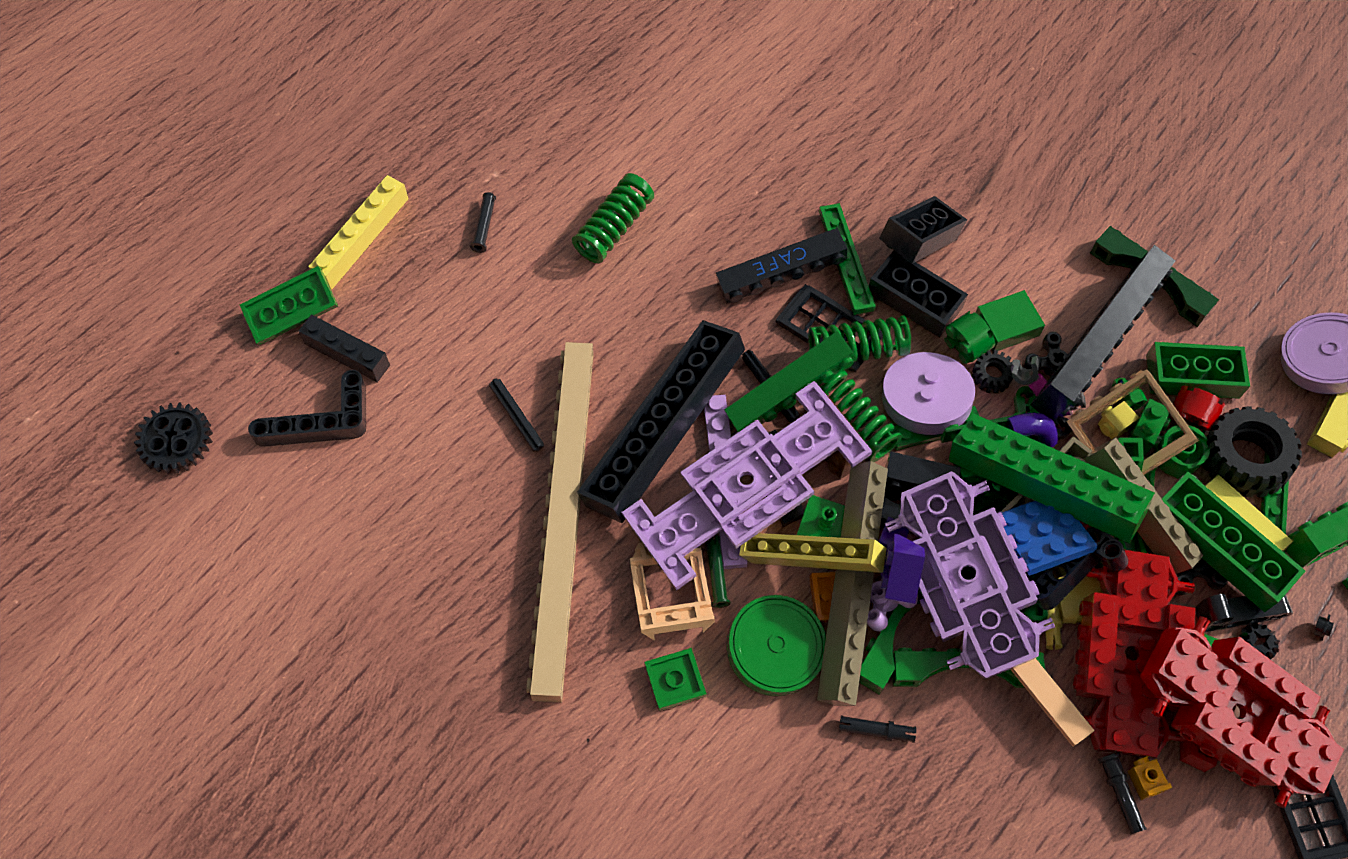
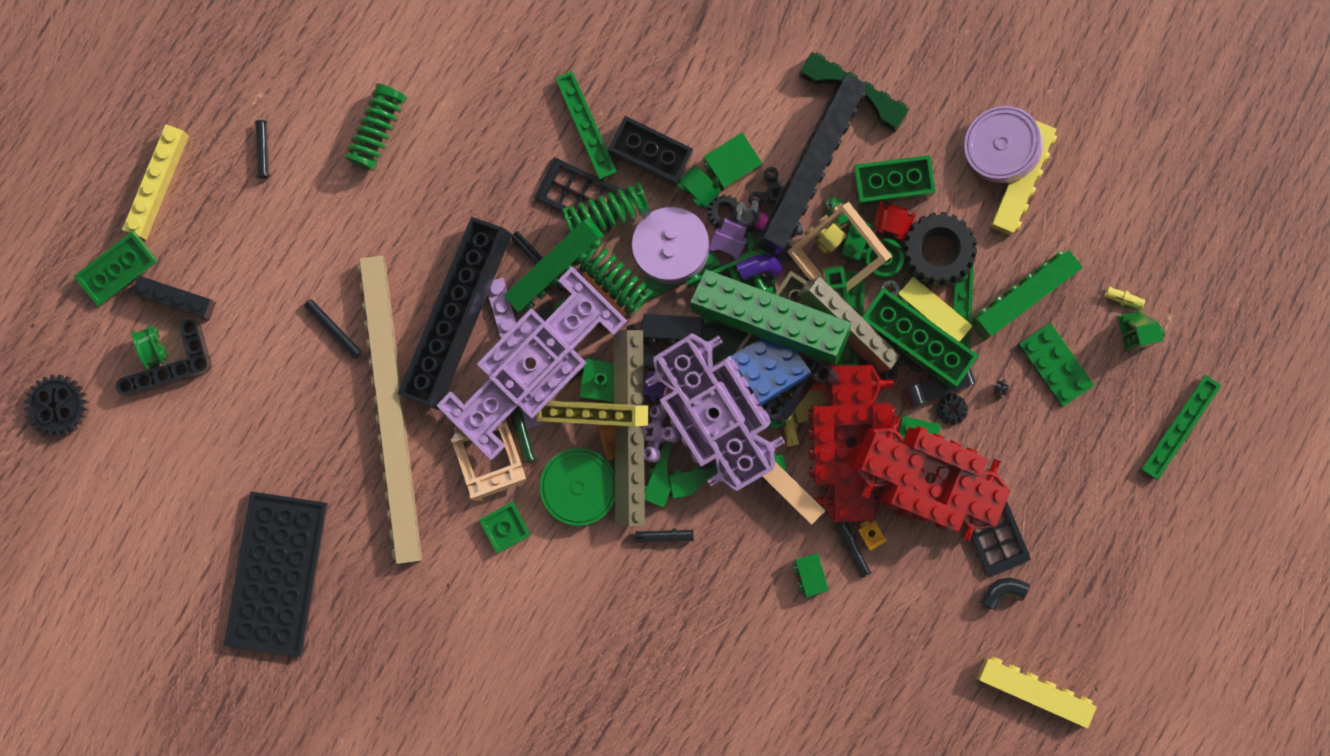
camera: 10 degrees left, 20 degrees up
(300, 390) = (149, 347): none -> green wheel
(374, 684) = (276, 574): none -> black plate
(782, 266) = (530, 148): black brick -> none
(902, 569) = (661, 421): dark purple slope -> none
(922, 229) = (647, 91): black brick -> none
(999, 396) = (730, 239): none -> medium lavender piece
(1065, 815) = (810, 575): none -> green brick

